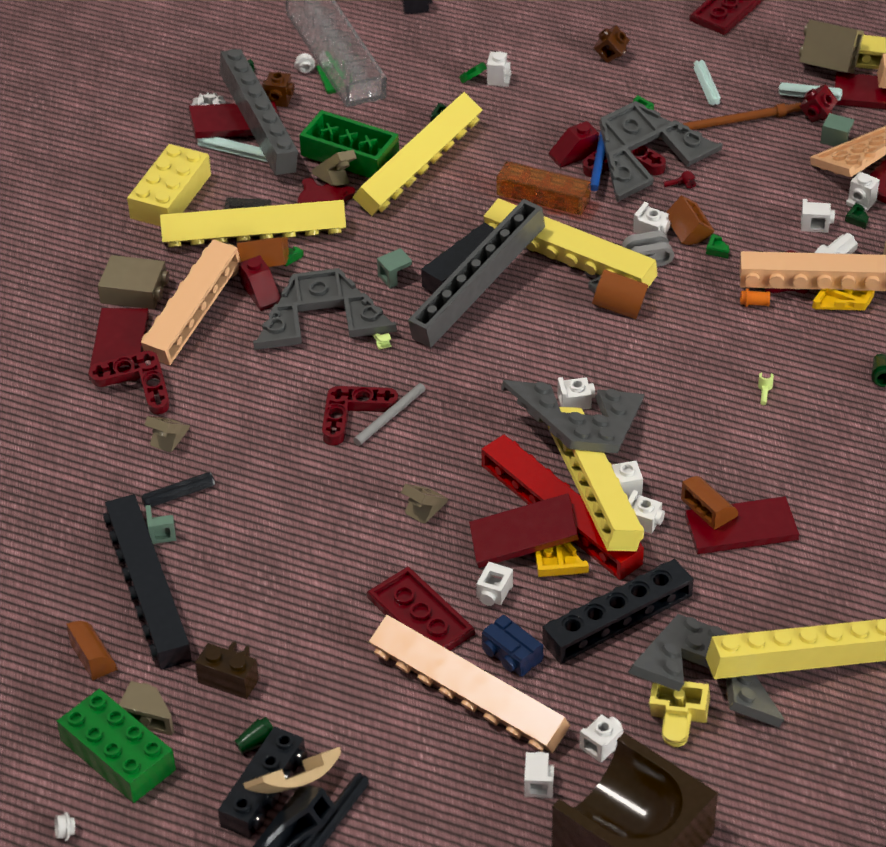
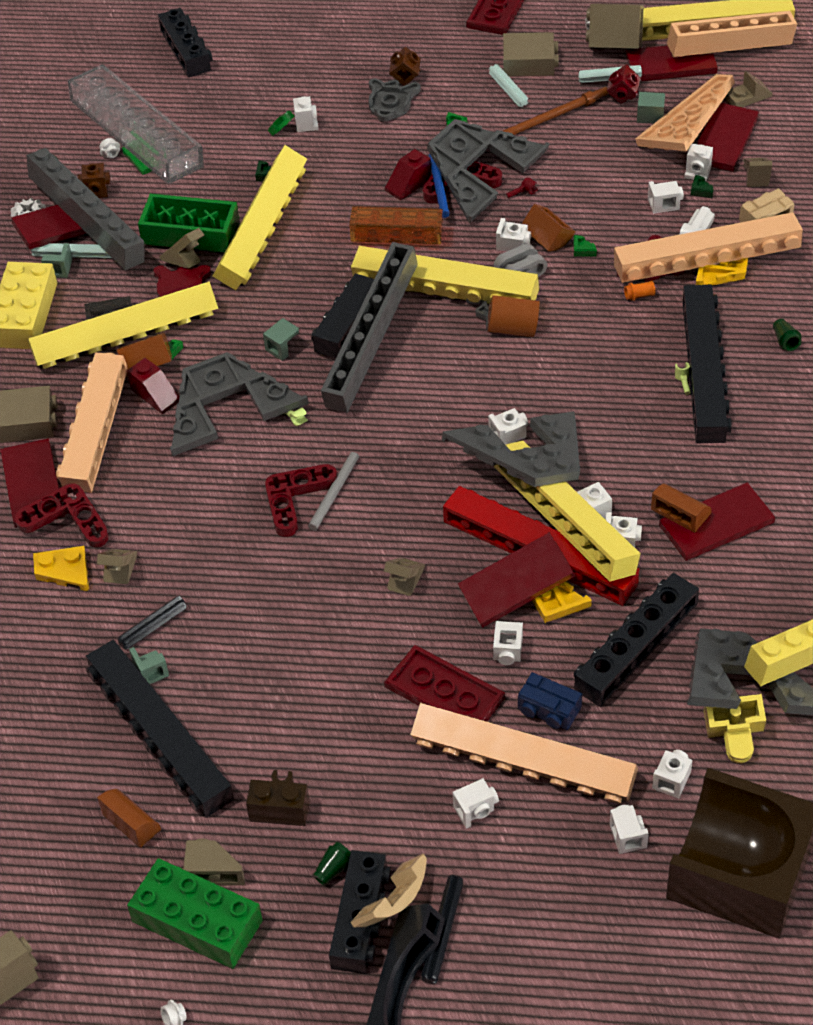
camera: 15 degrees left, 5 degrees up
(118, 423) = (62, 567): none -> yellow wing
(219, 157) = (60, 262): none -> sand green panel
(406, 715) = (474, 801): none -> white brick
(588, 71) = (389, 99): none -> dark grey tile
(738, 57) = (530, 54): none -> dark tan brick
(789, 378) = (705, 367): none -> black brick

